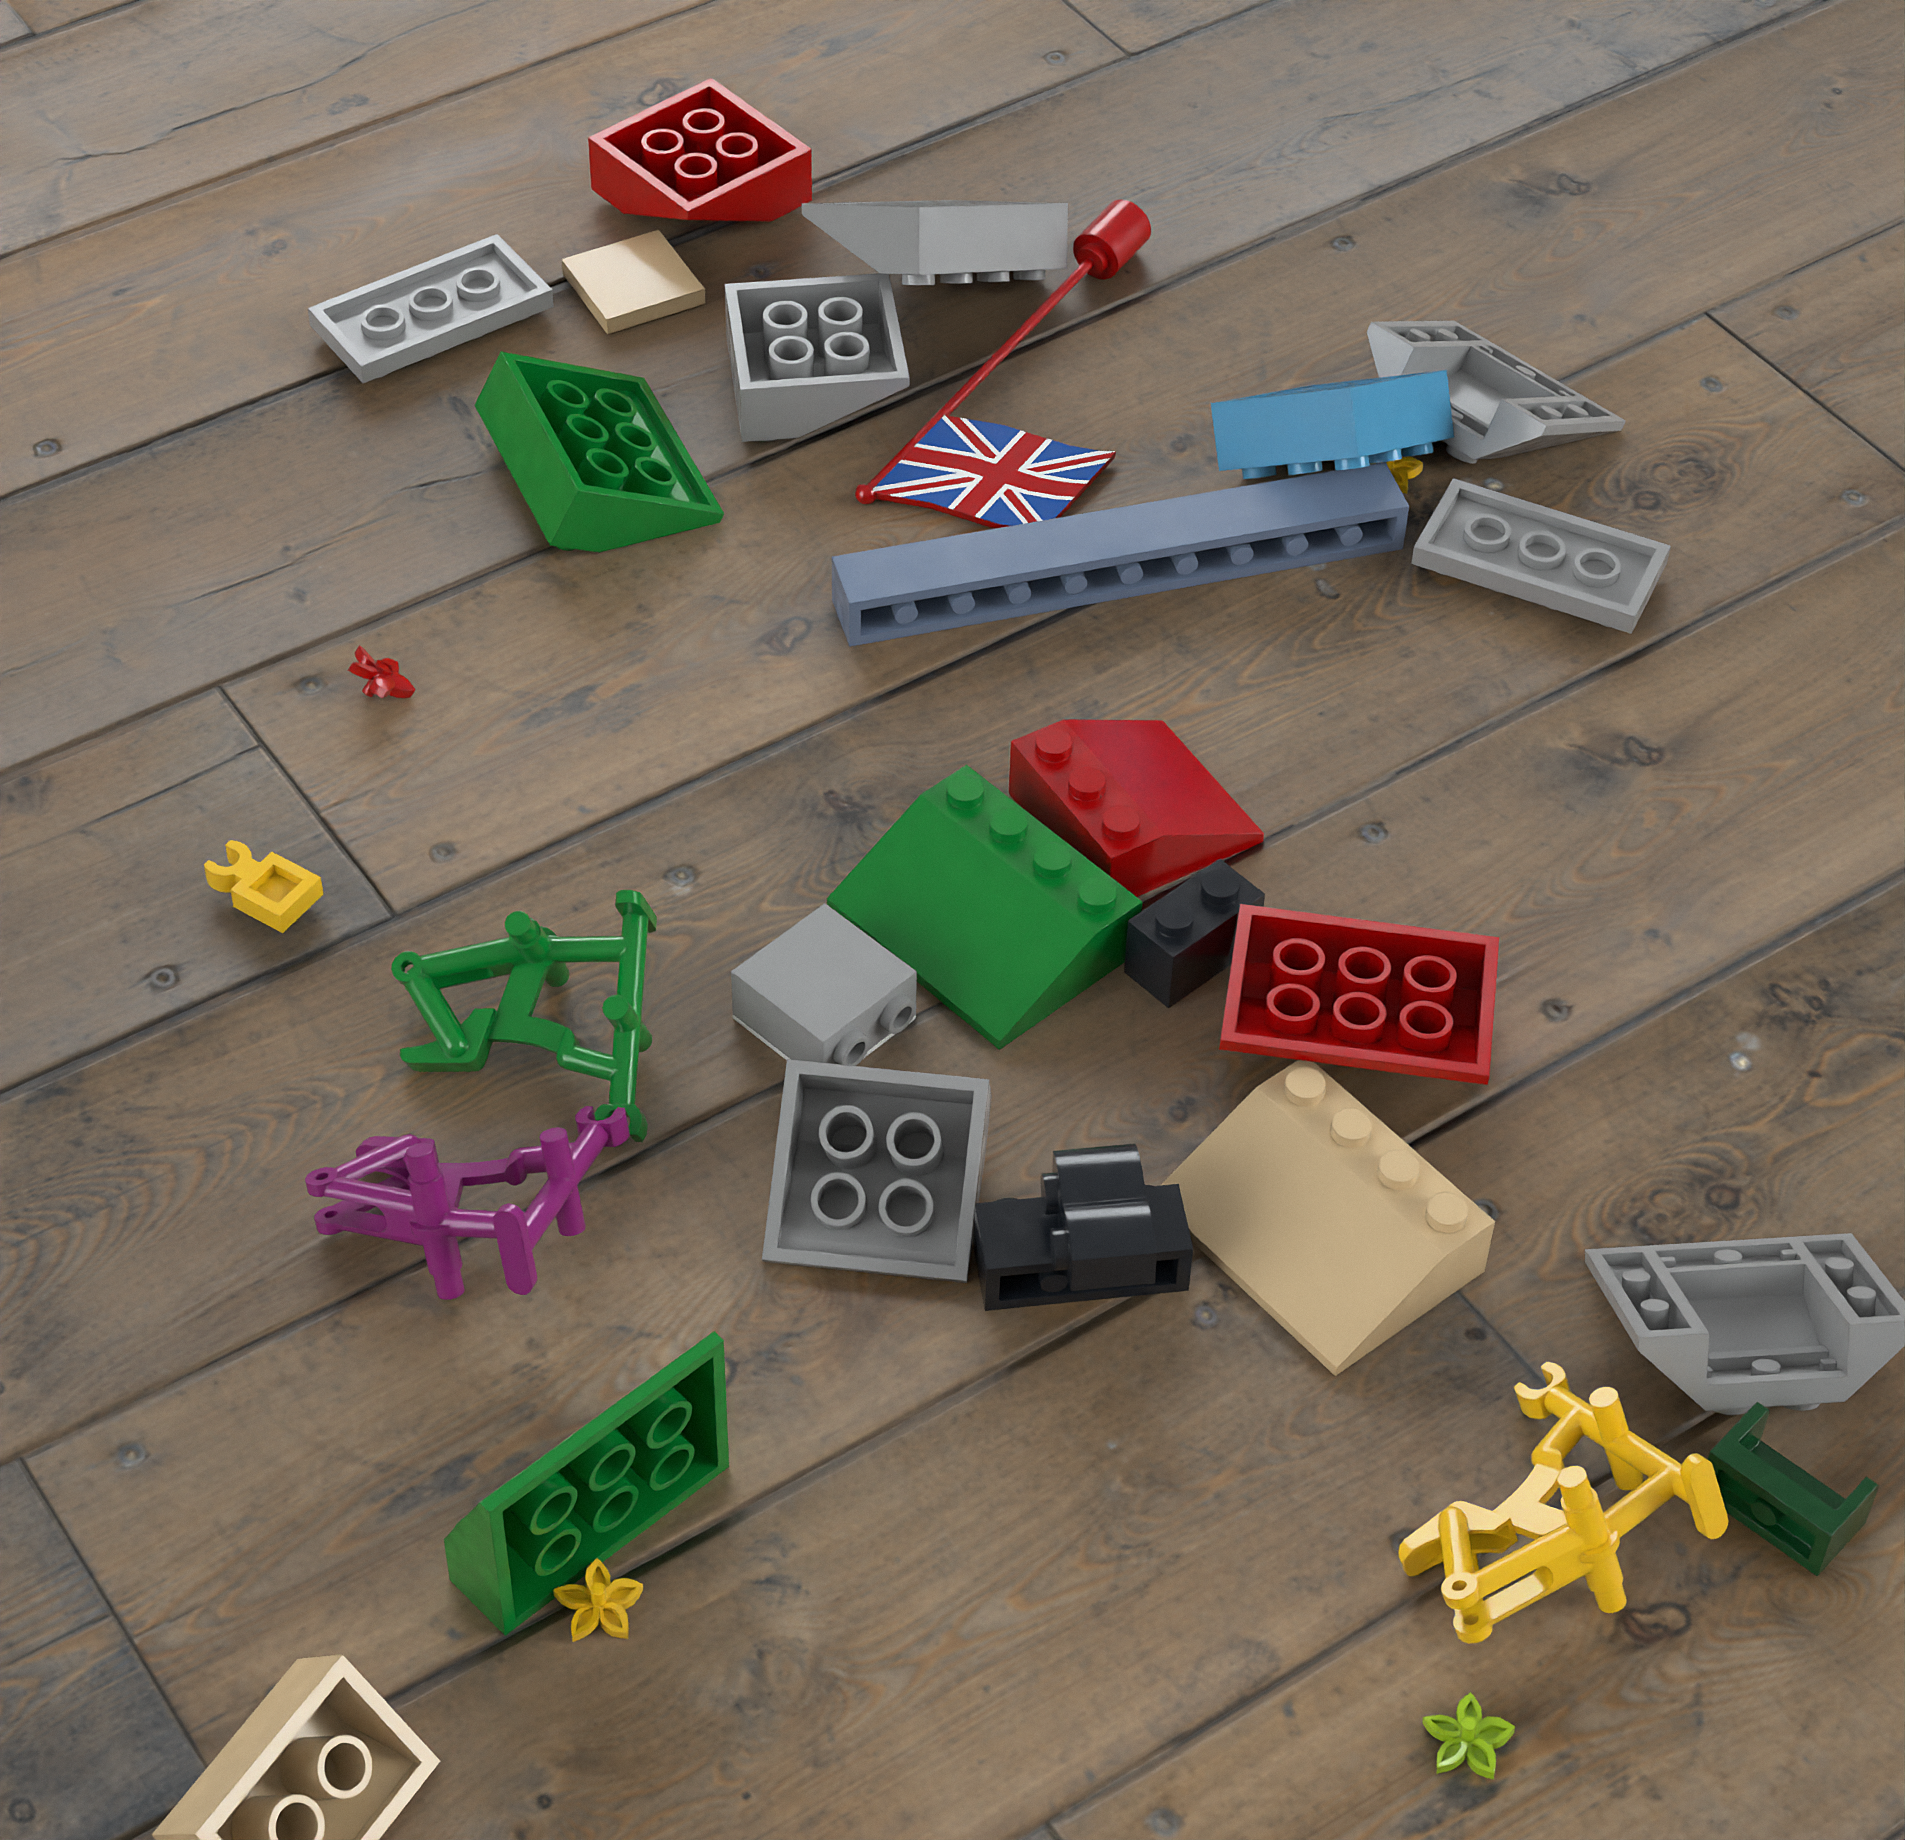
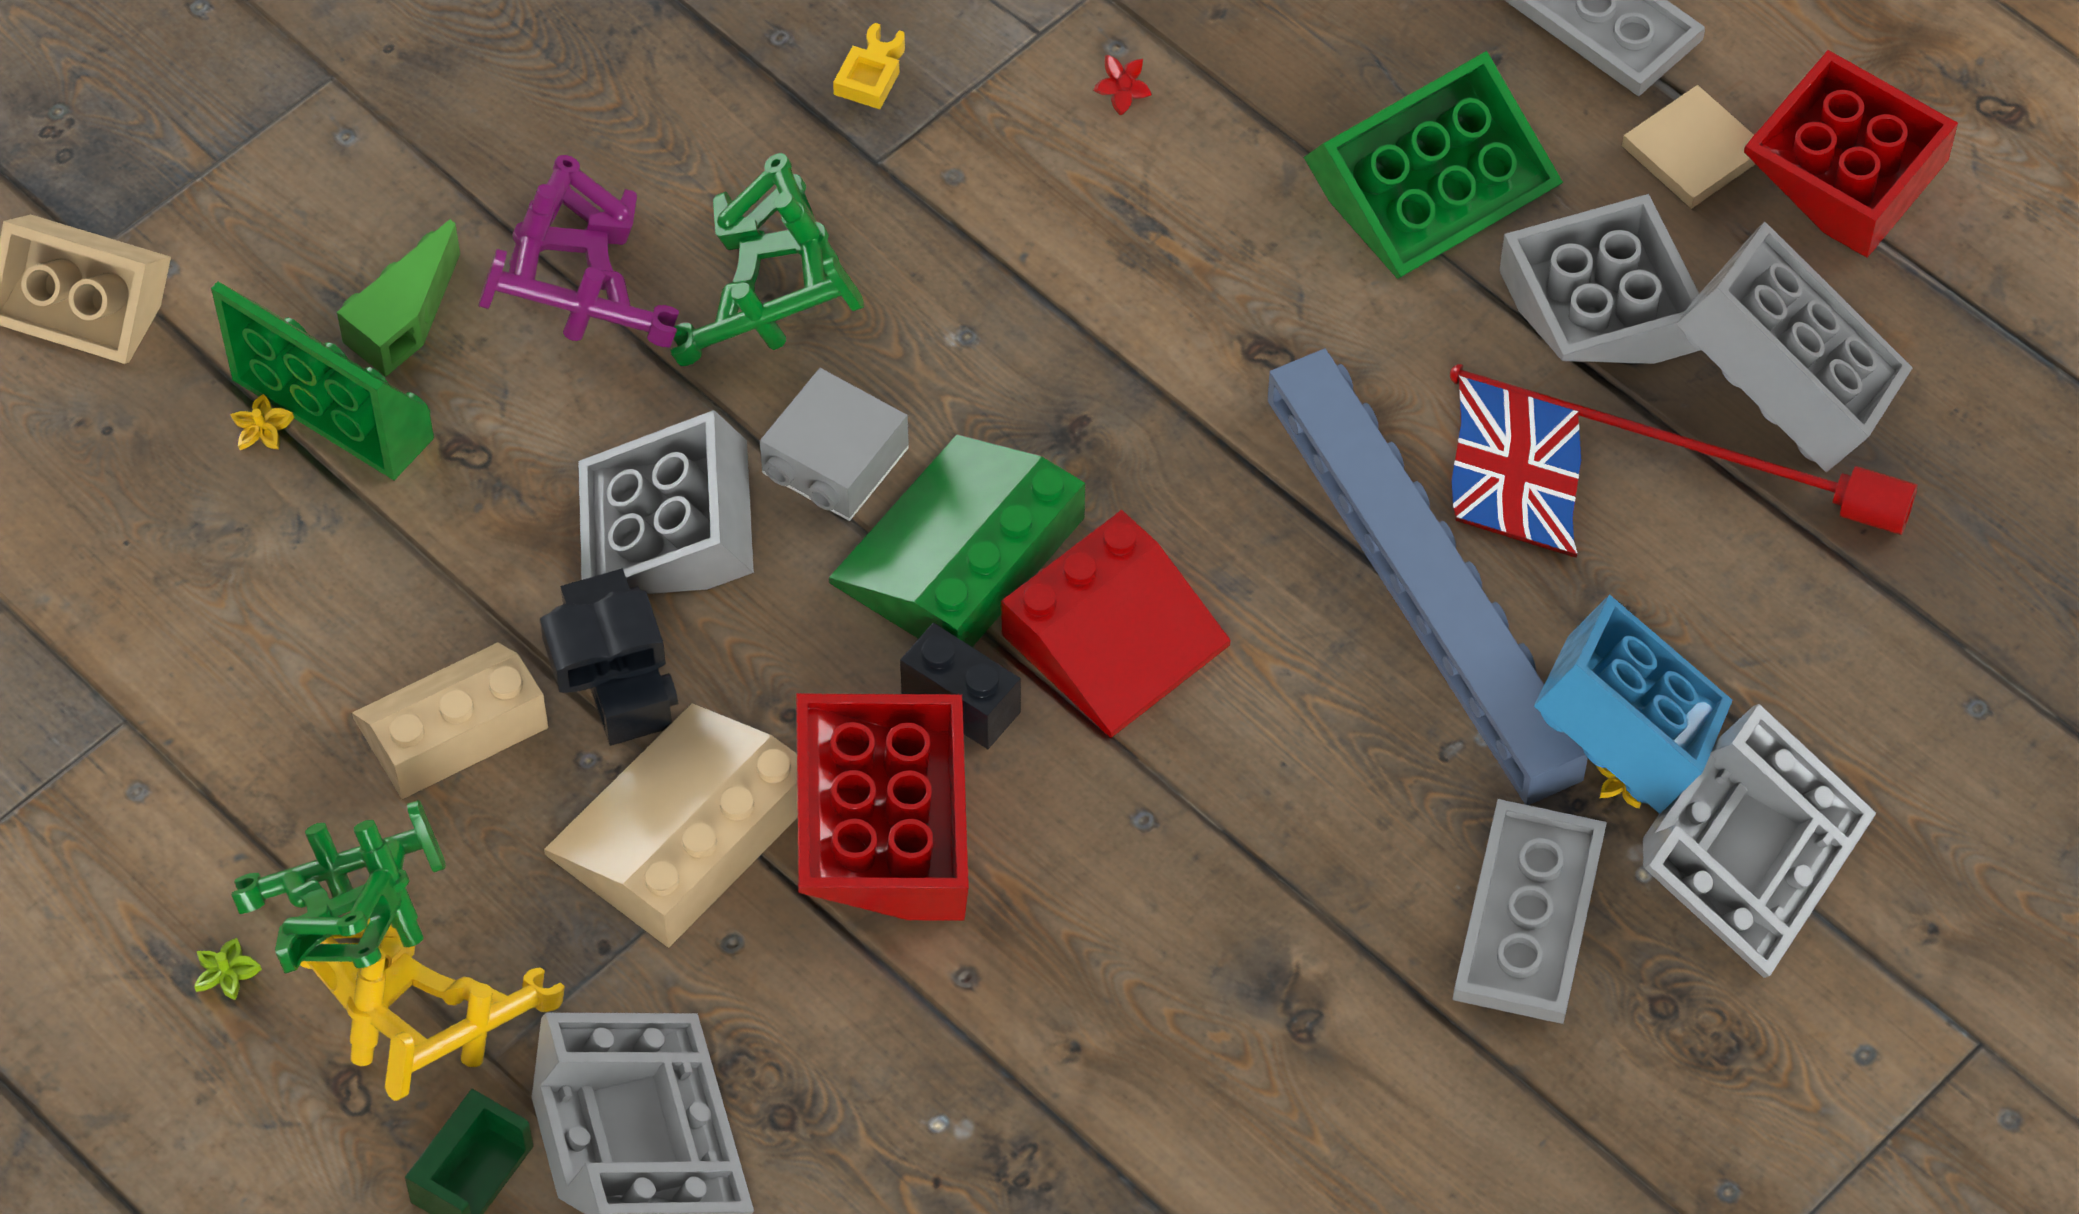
camera: 80 degrees right, 10 degrees up
(473, 1404) = (398, 309): none -> bright green slope
(1129, 1430) = (453, 718): none -> tan slope
(1464, 1482) = (380, 898): none -> green piece

